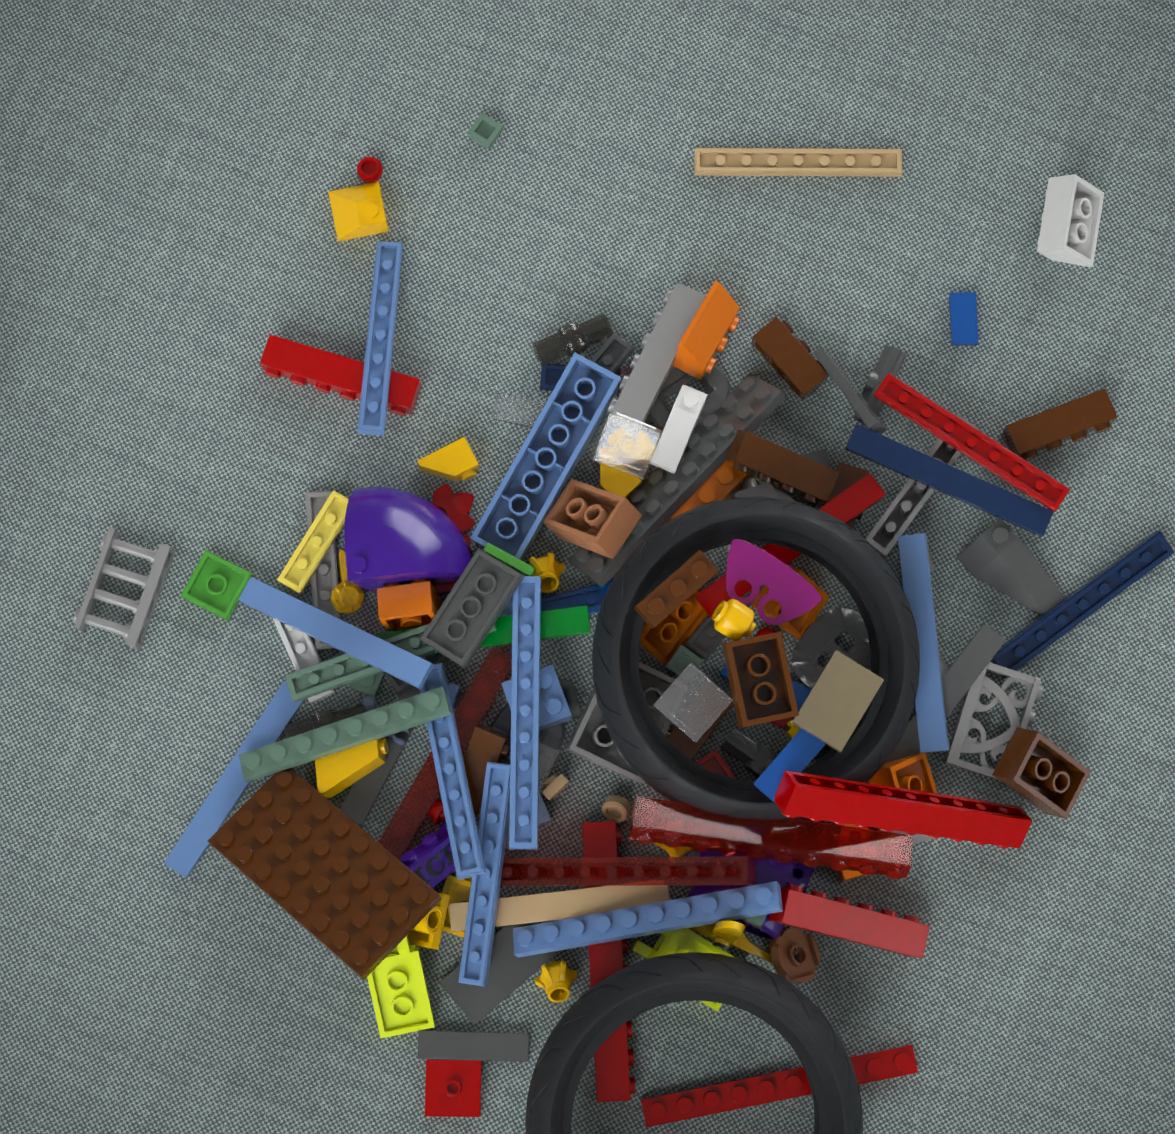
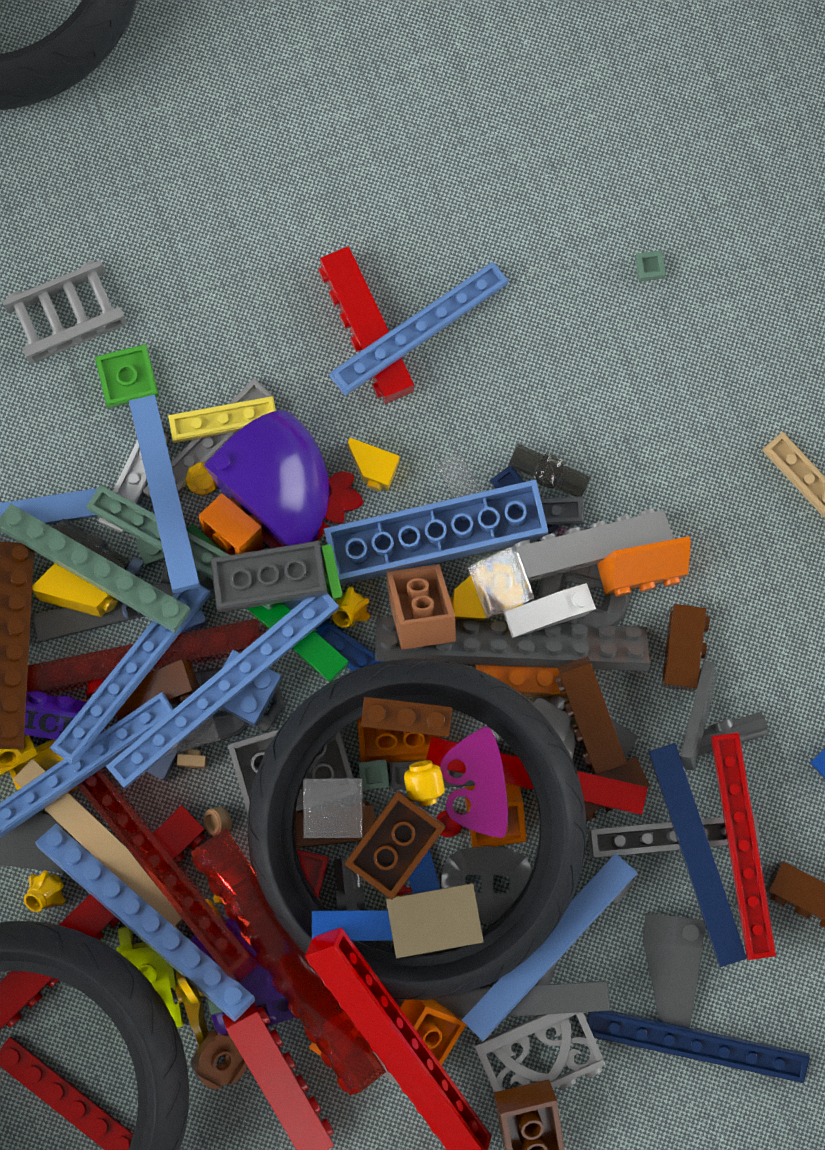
camera: 40 degrees right, 0 degrees up
(358, 211) = (503, 228): yellow slope -> none
(369, 169) = (542, 208): red plate -> none

